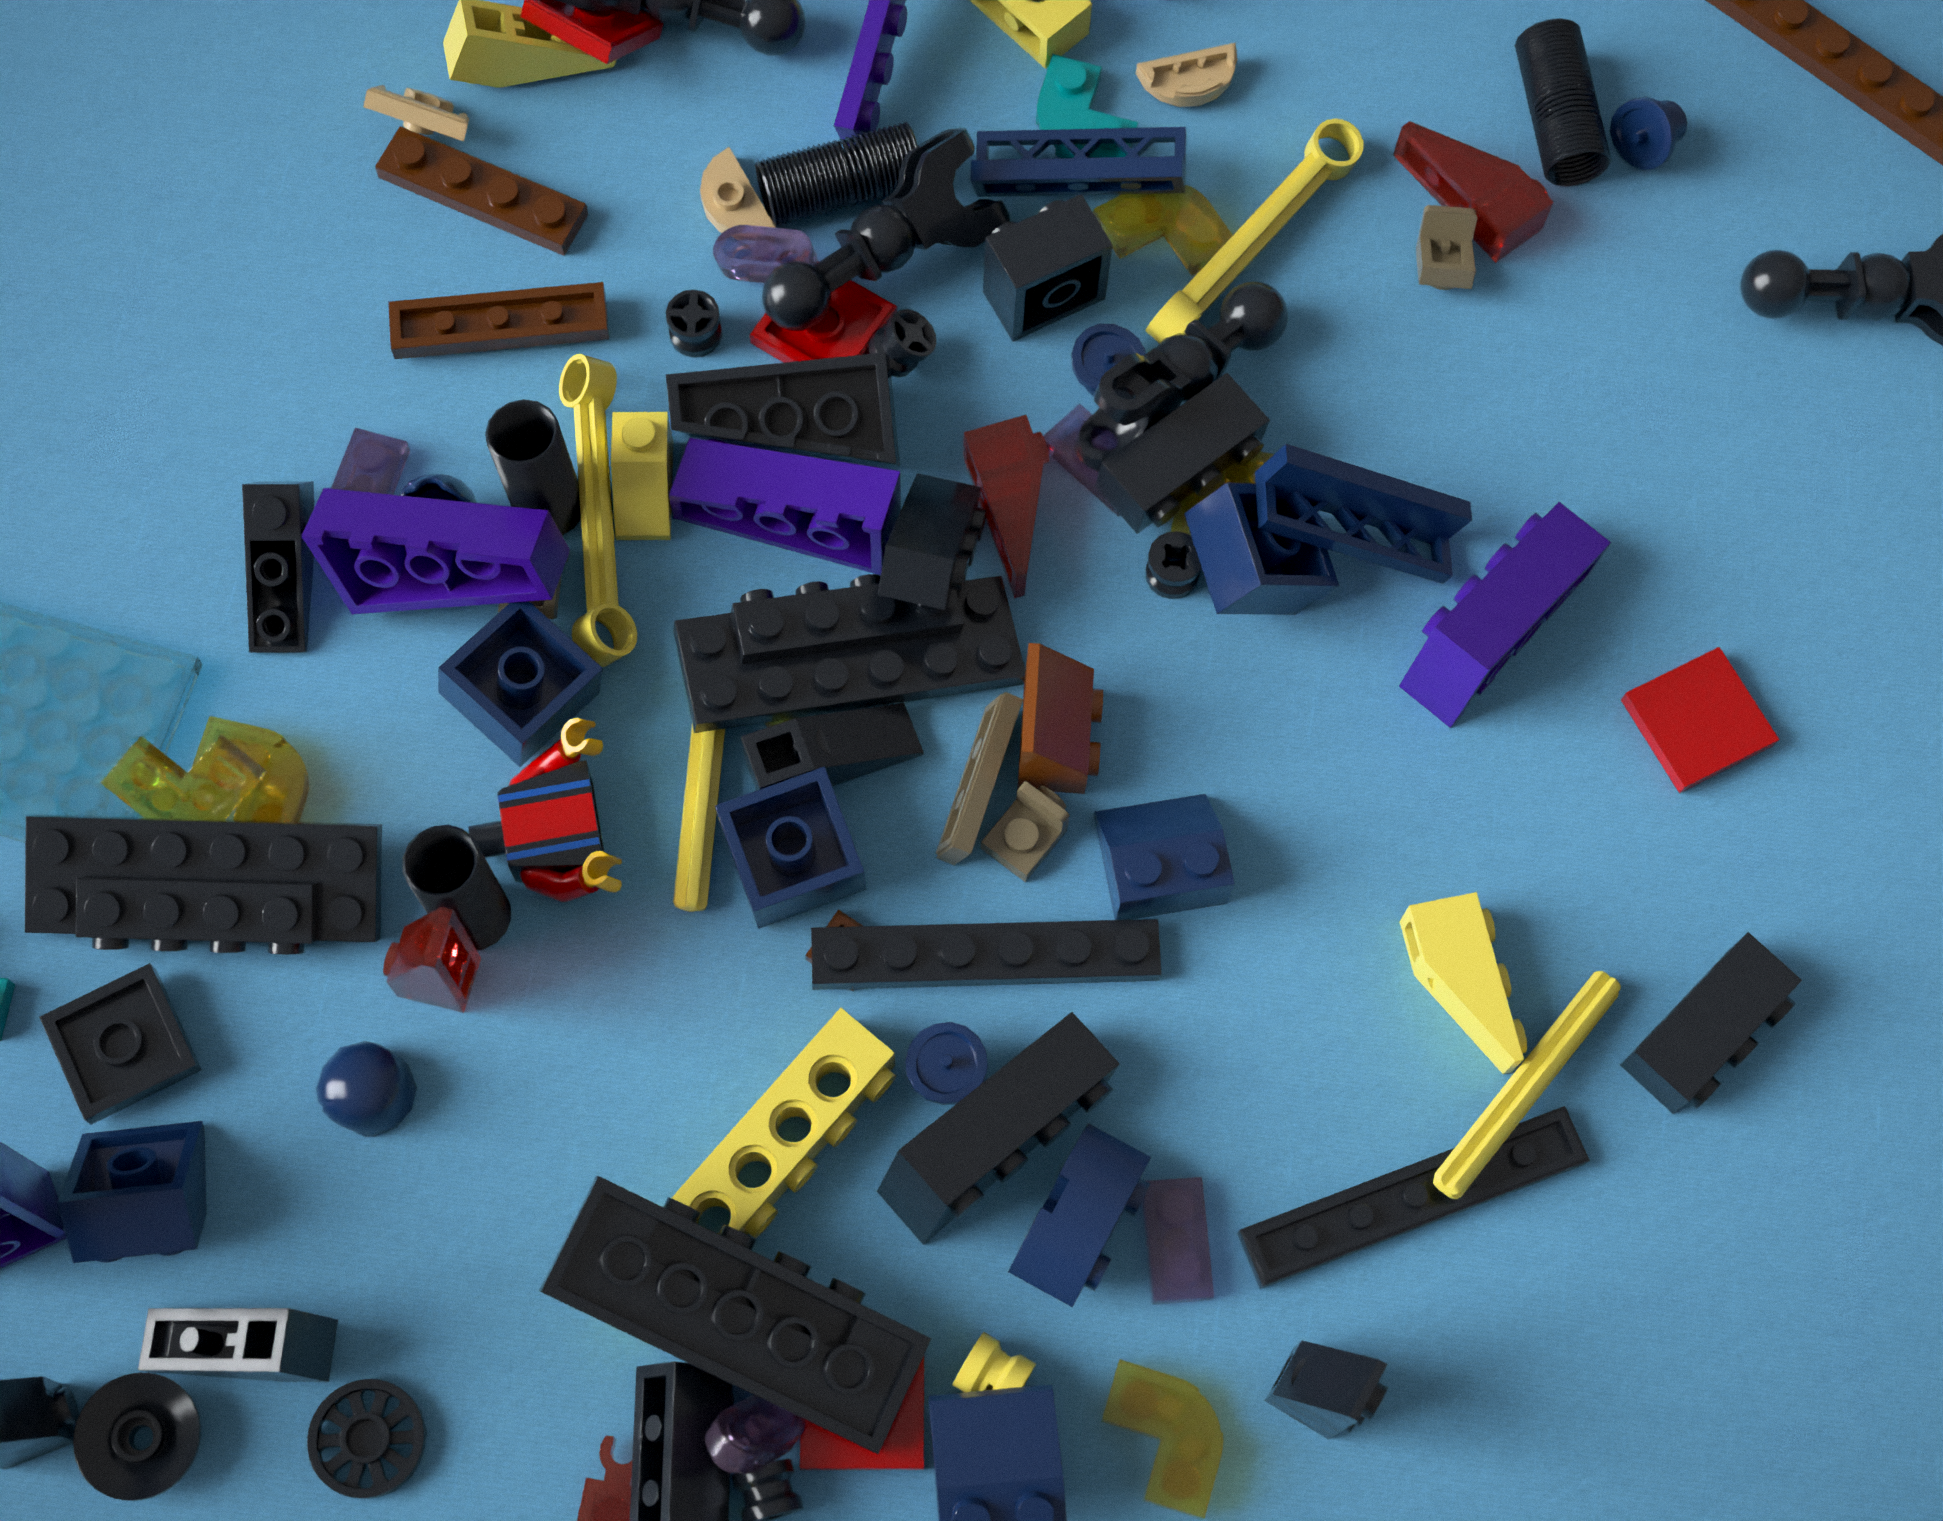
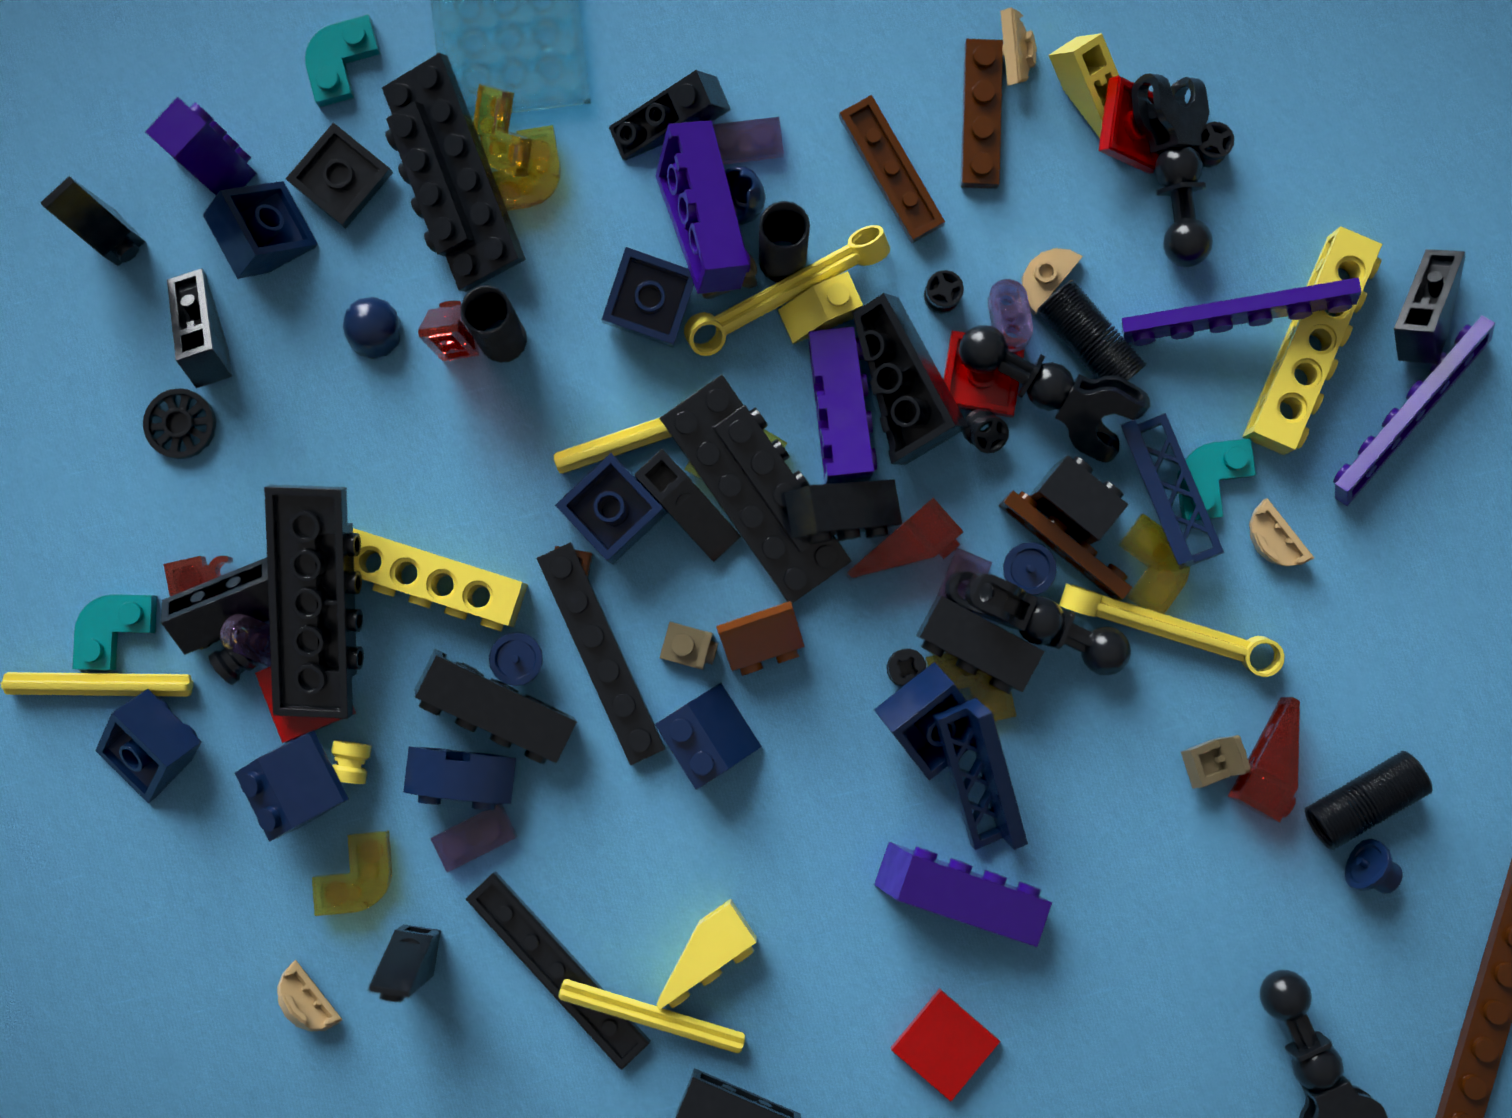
camera: 75 degrees right, 15 degrees up
(107, 1432) = (112, 290): black dish -> none
(553, 822) = (569, 360): torso -> none
(978, 778) = (707, 603): dark tan tile -> none
(1112, 302) = (1077, 554): none -> reddish brown plate

